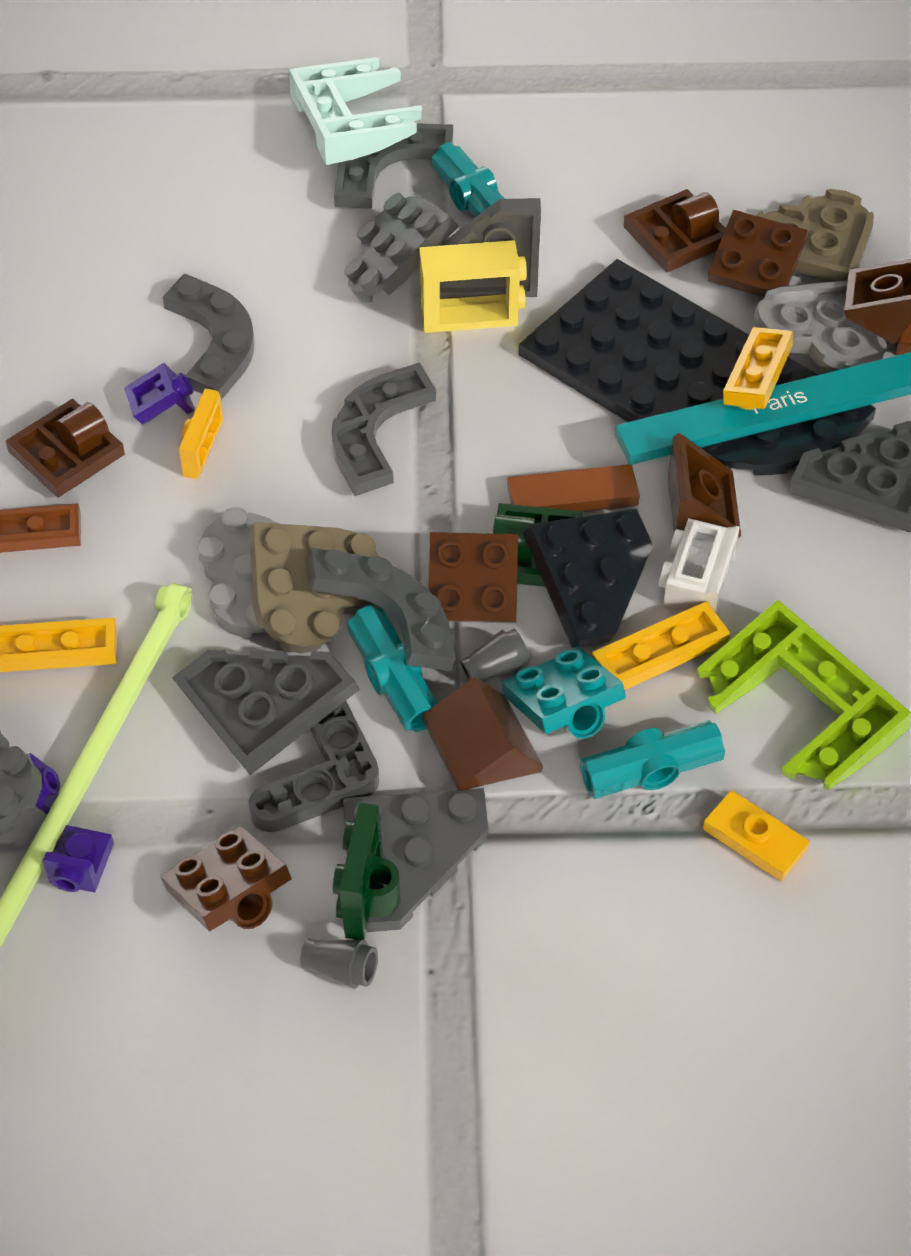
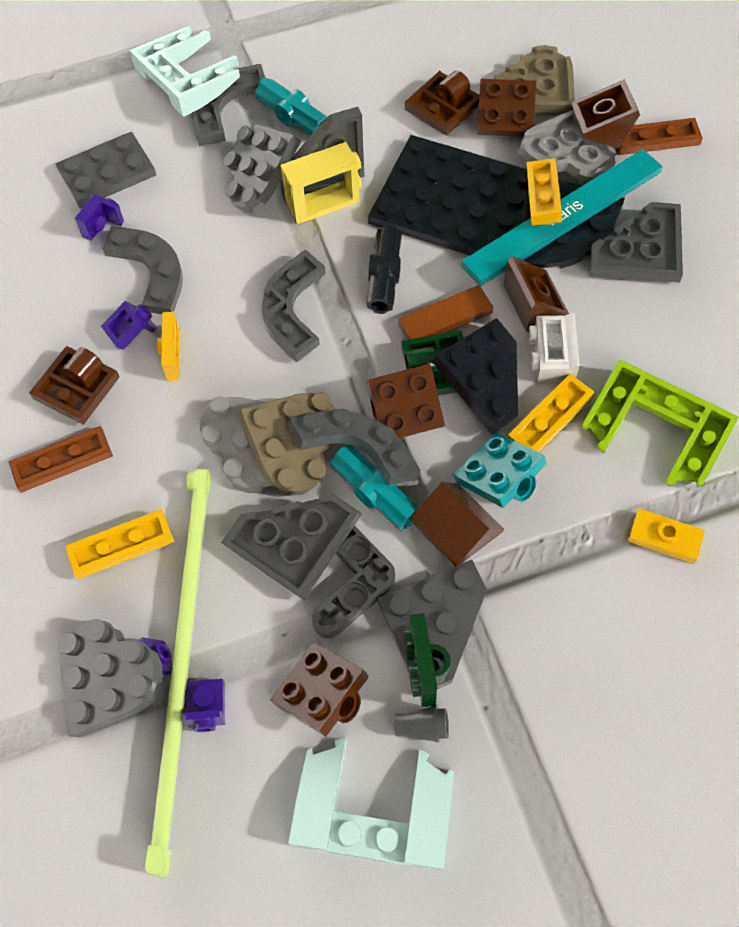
camera: 15 degrees left, 10 degrees up
(169, 255) = (96, 214): none -> dark purple bracket
(205, 206) = (106, 169): none -> dark grey plate
(276, 1096) = (410, 844): none -> light aqua wedge
(497, 656) = (443, 456): dark grey cone -> none
(513, 413) = (384, 269): none -> black piece
(652, 759) = (577, 502): teal piece -> none

